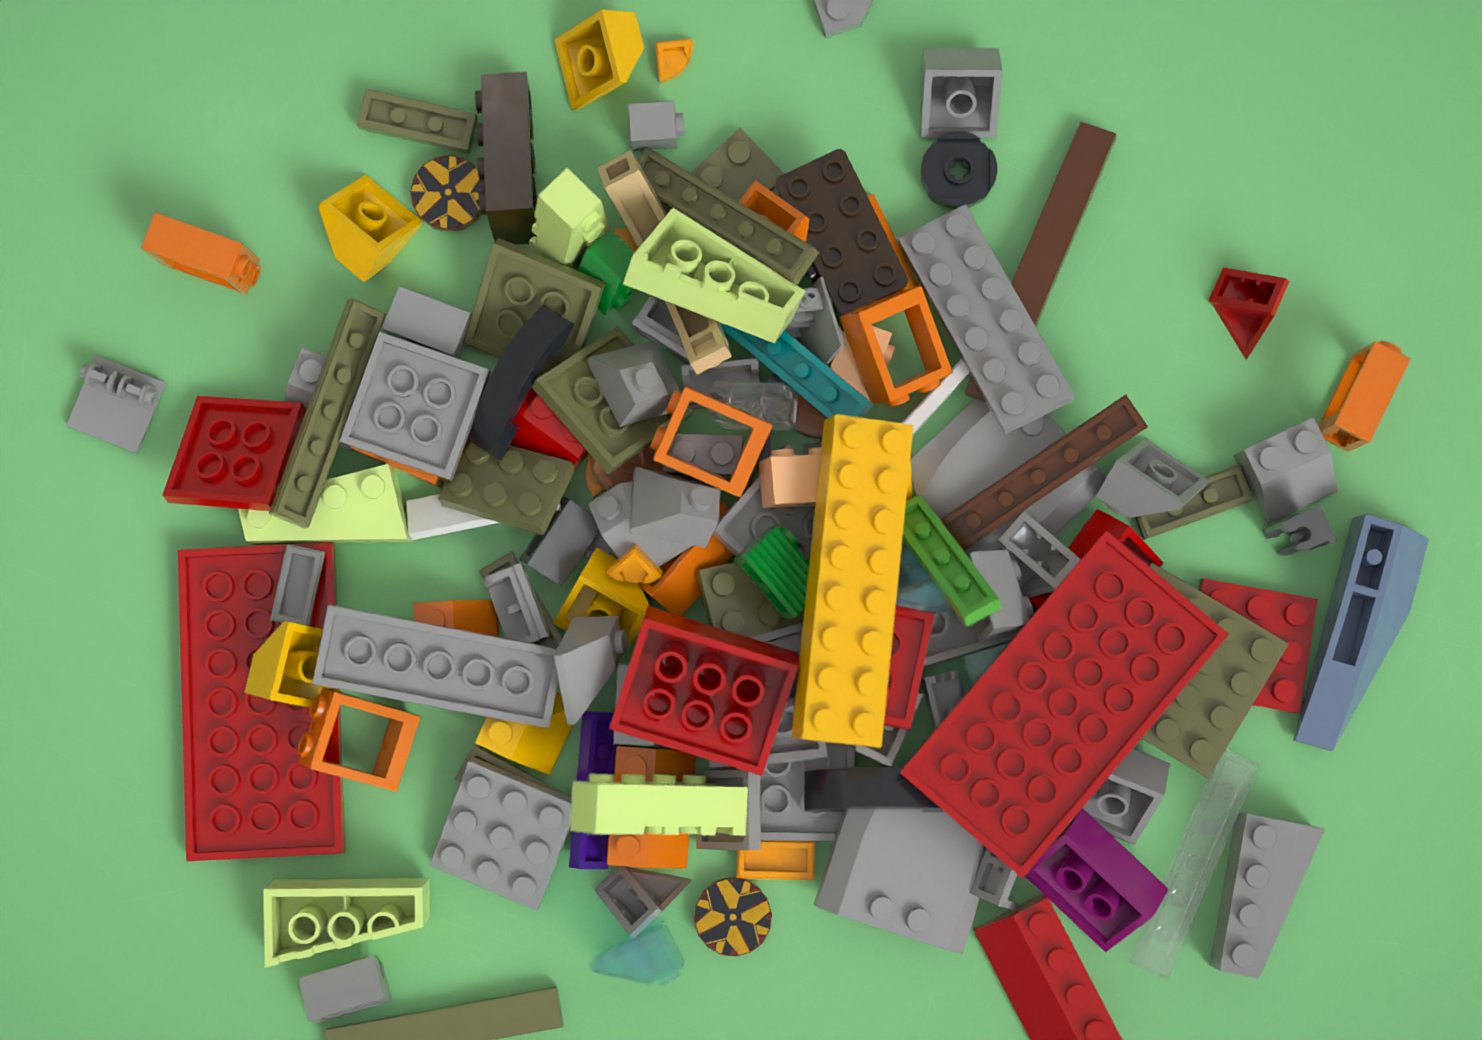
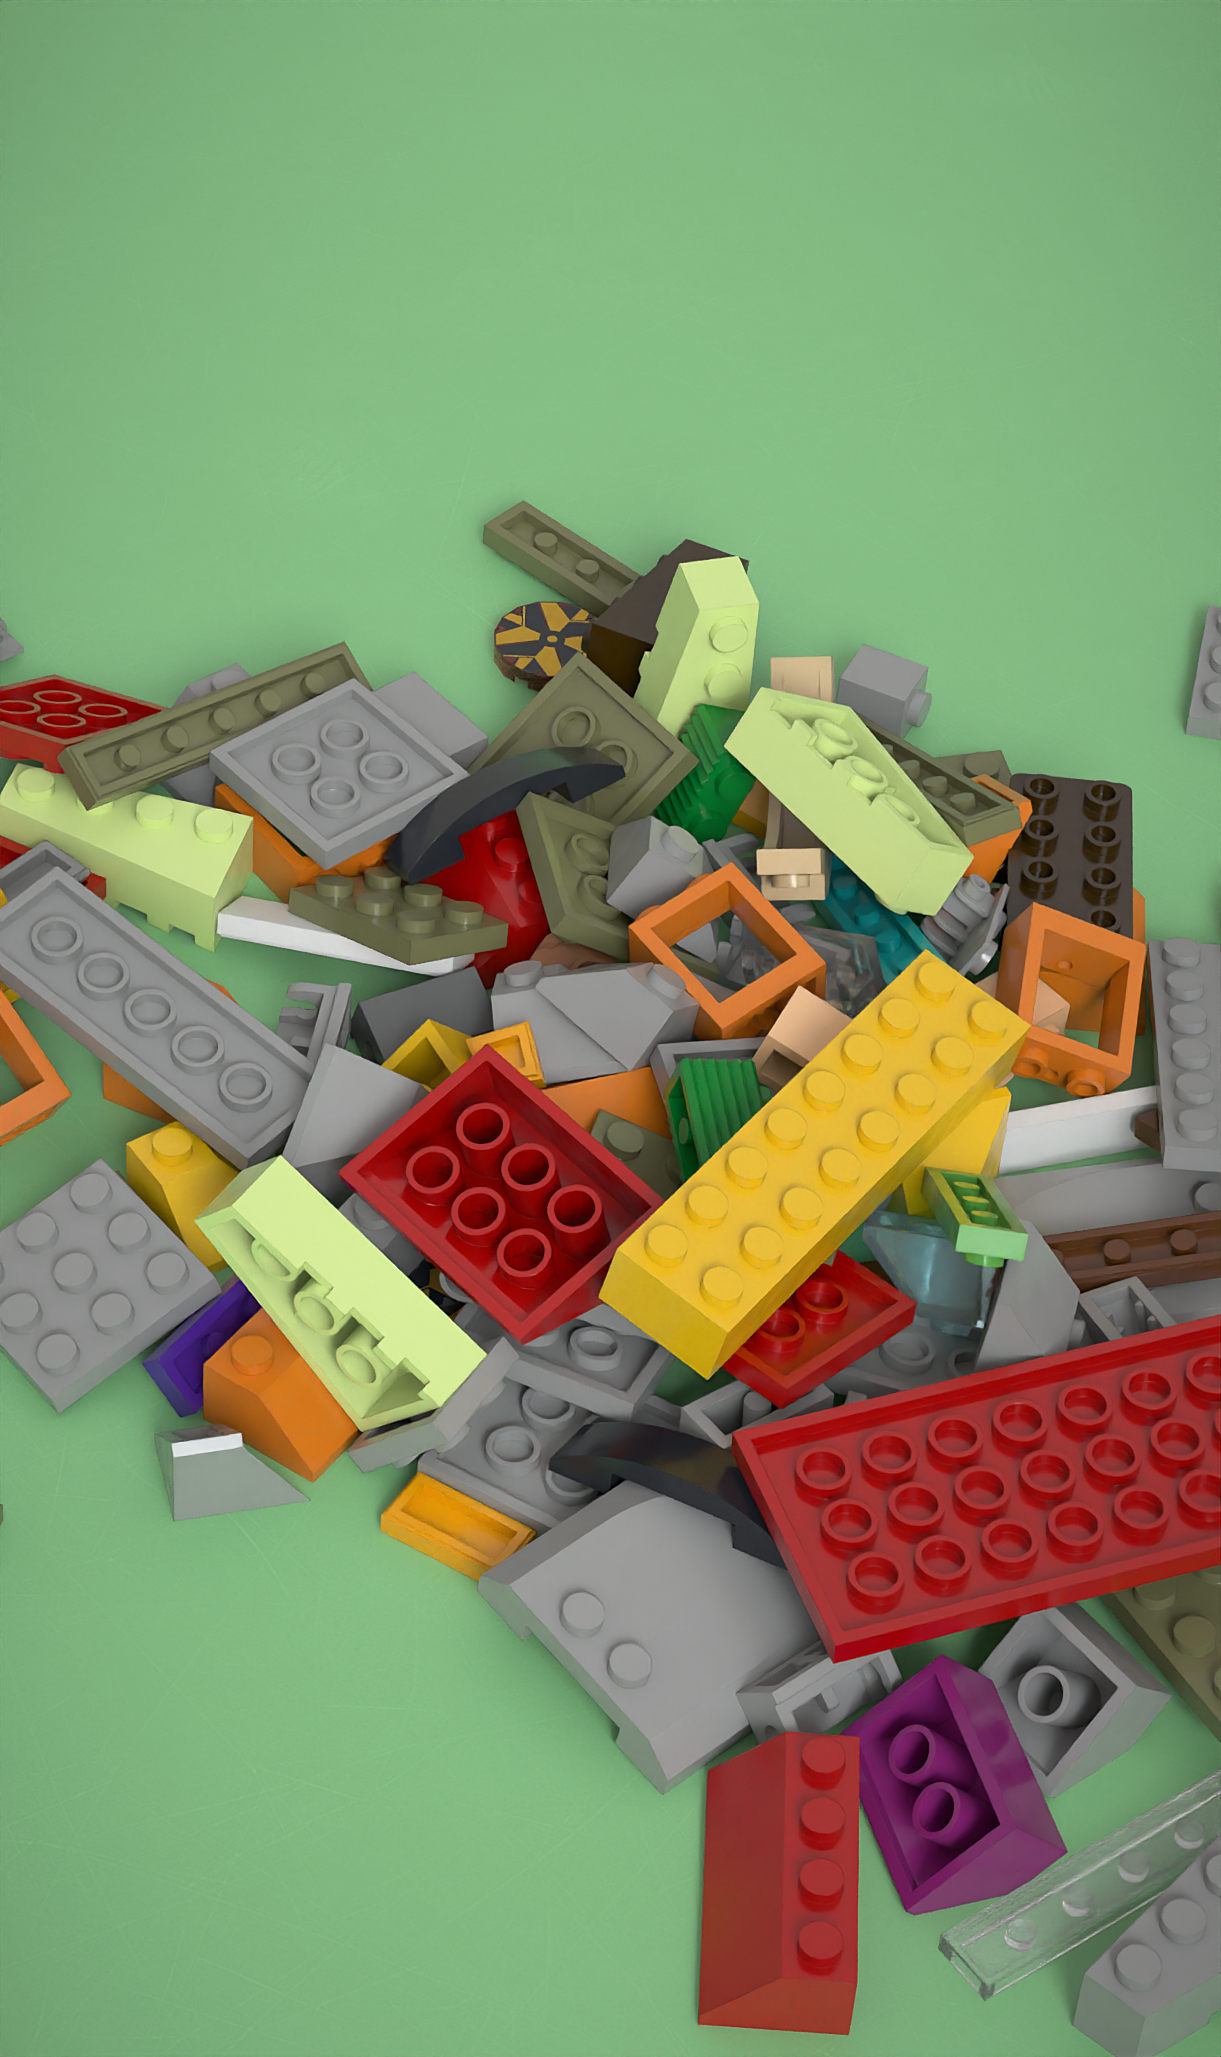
camera: 25 degrees right, 40 degrees down
(201, 253) = (170, 491): orange window -> none
(366, 226) = (414, 619): yellow slope -> none
(598, 55) = (862, 597): yellow slope -> none
(642, 959) = (161, 1502): clear light blue slope -> none
(673, 58) = (959, 657): light orange tile -> none
(733, 916) = (339, 1563): tile -> none

